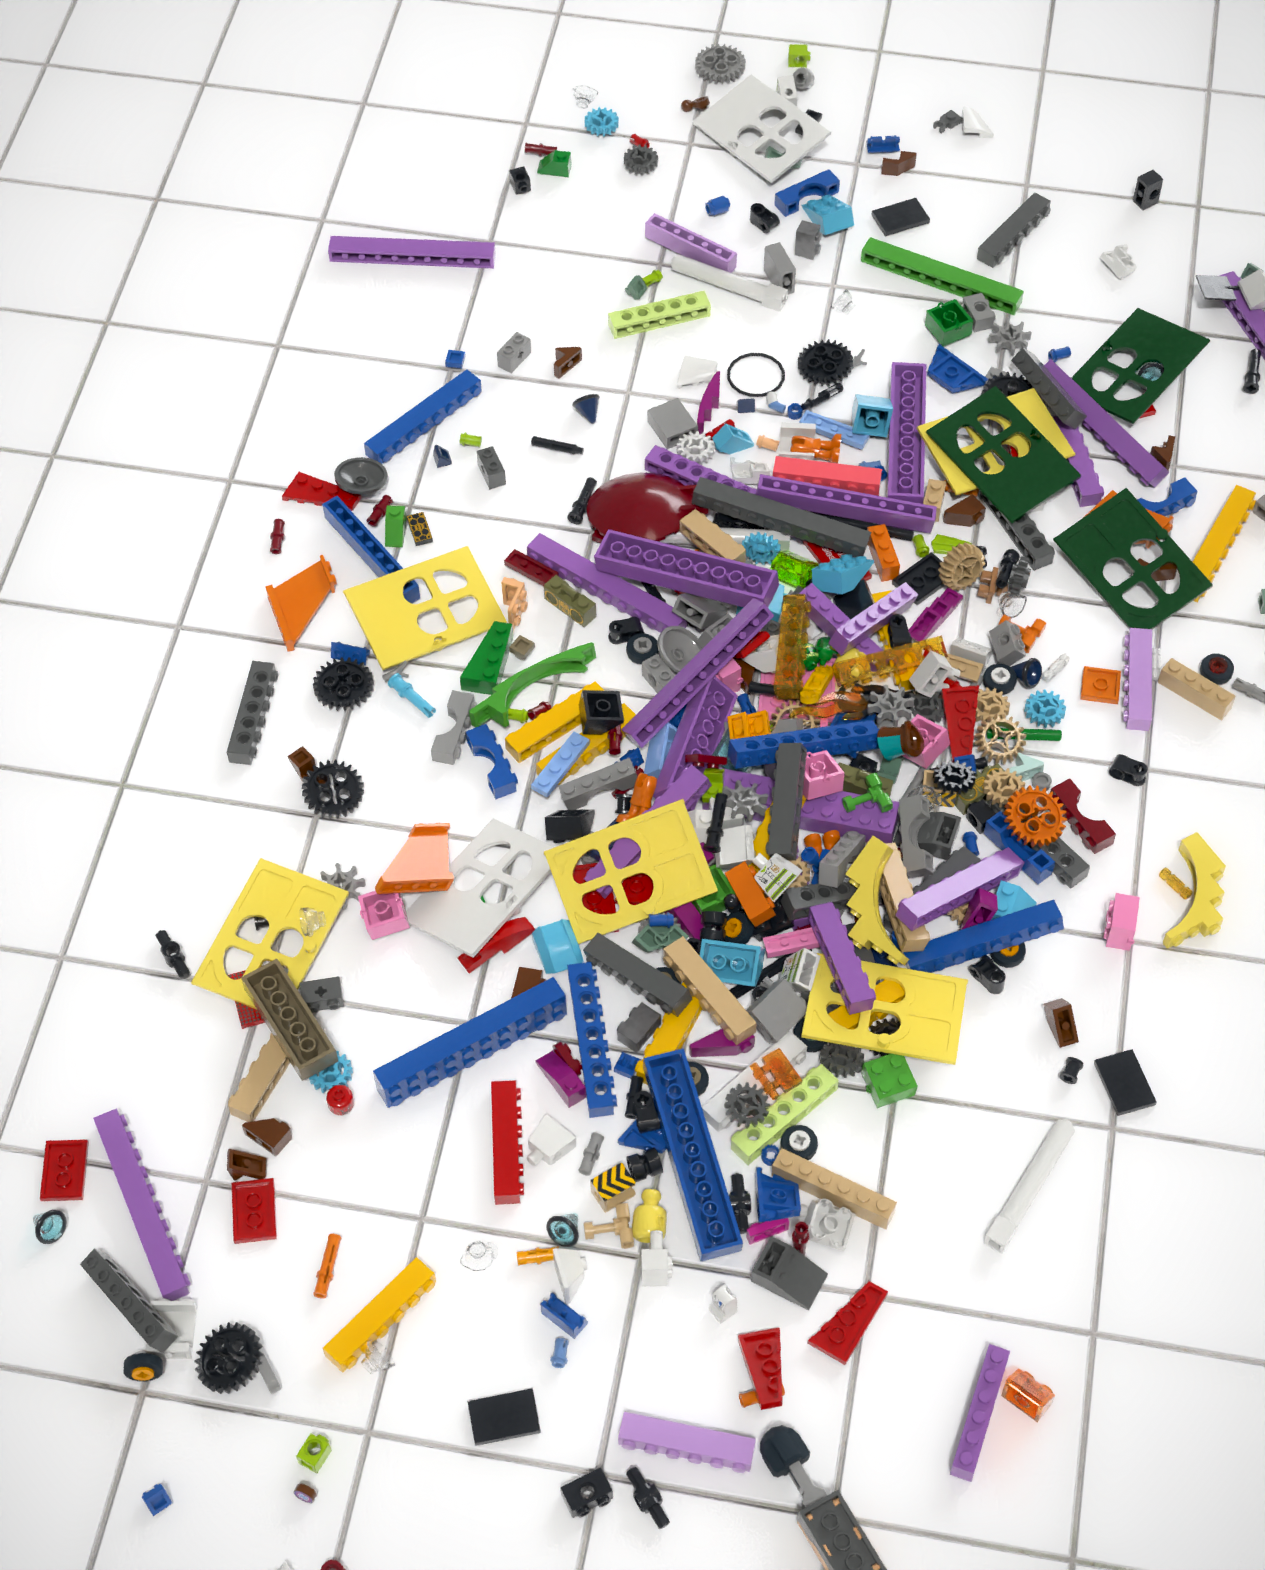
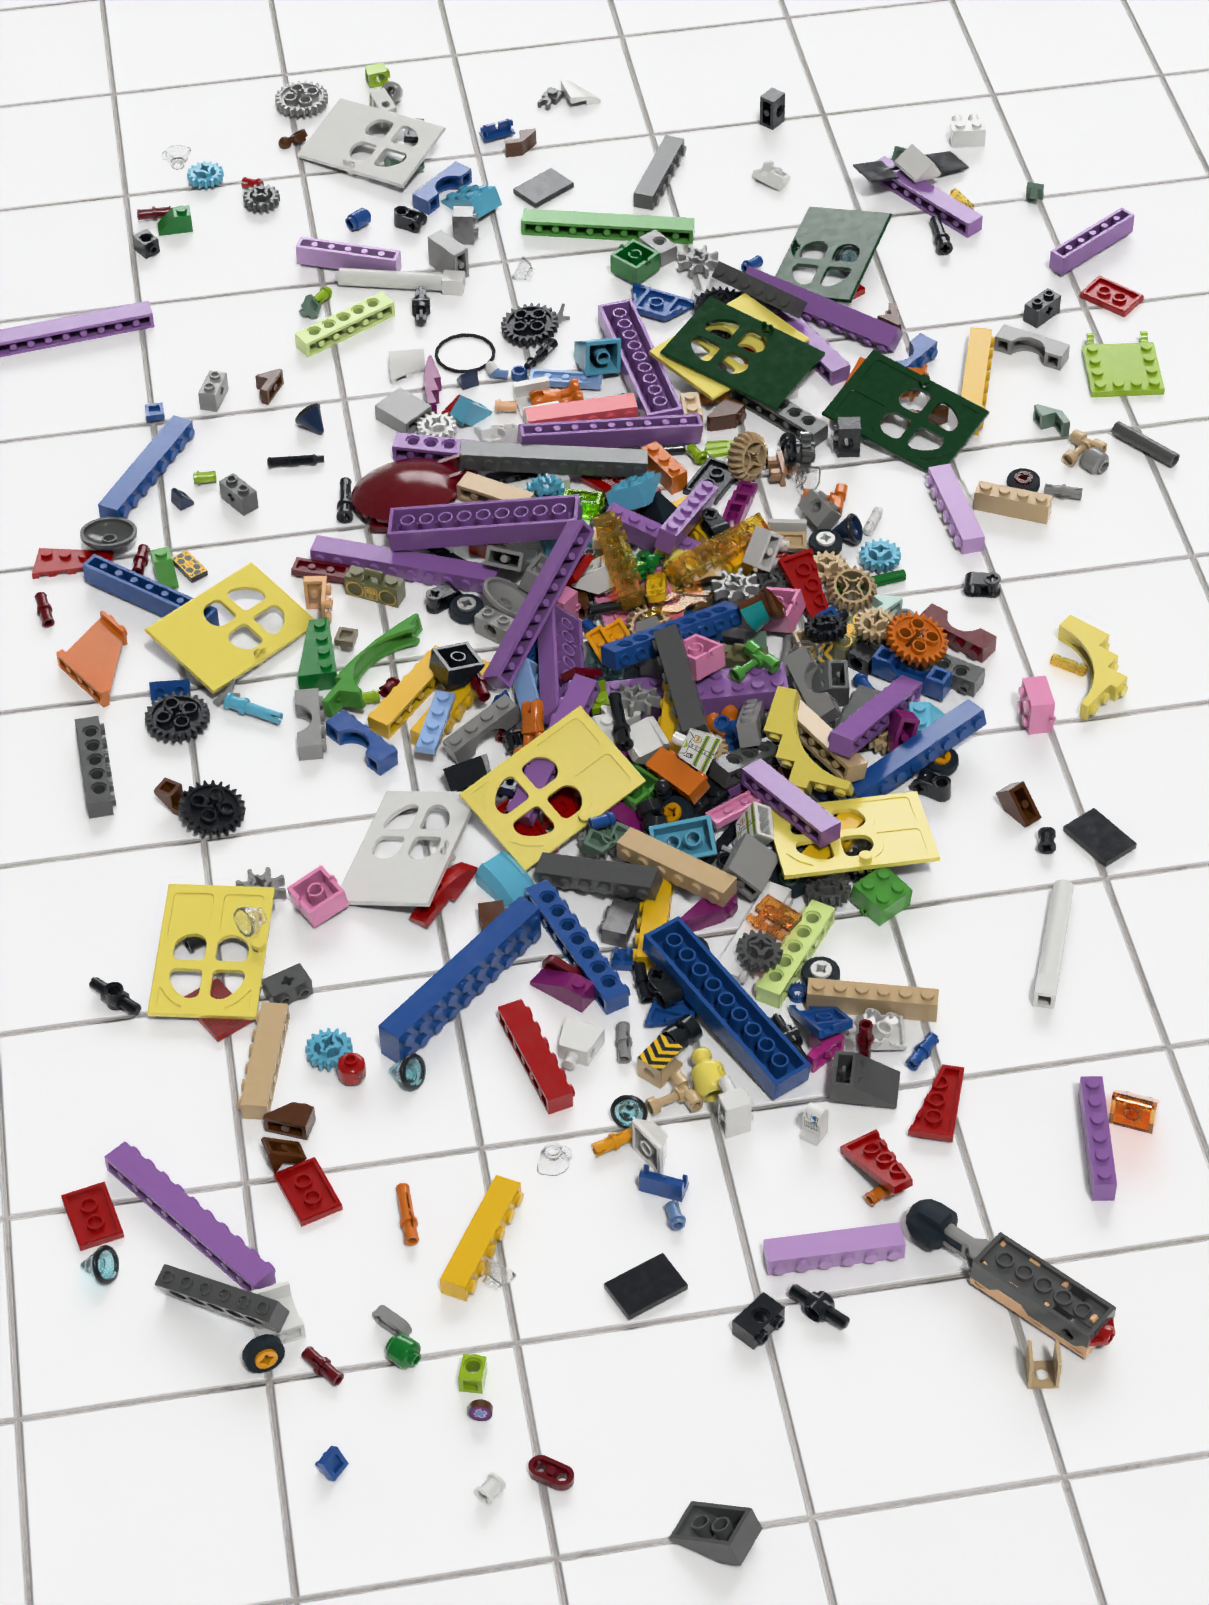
camera: 20 degrees left, 10 degrees down
(191, 1395) = (322, 1365): none -> dark red pin
(233, 1339) = (342, 1315): black gear -> none
(263, 1407) = (403, 1351): none -> green head
(289, 1019) = (271, 1008): dark tan brick -> none
(389, 1120) = (409, 1071): none -> clear light blue hat
(420, 863) = (336, 842): piece -> none
(735, 314) = (421, 306): none -> black axle
(857, 1258) = (922, 1051): none -> blue pin
(1066, 571) = (848, 437): none -> black brick
(1100, 685) = (921, 524): orange tile -> none

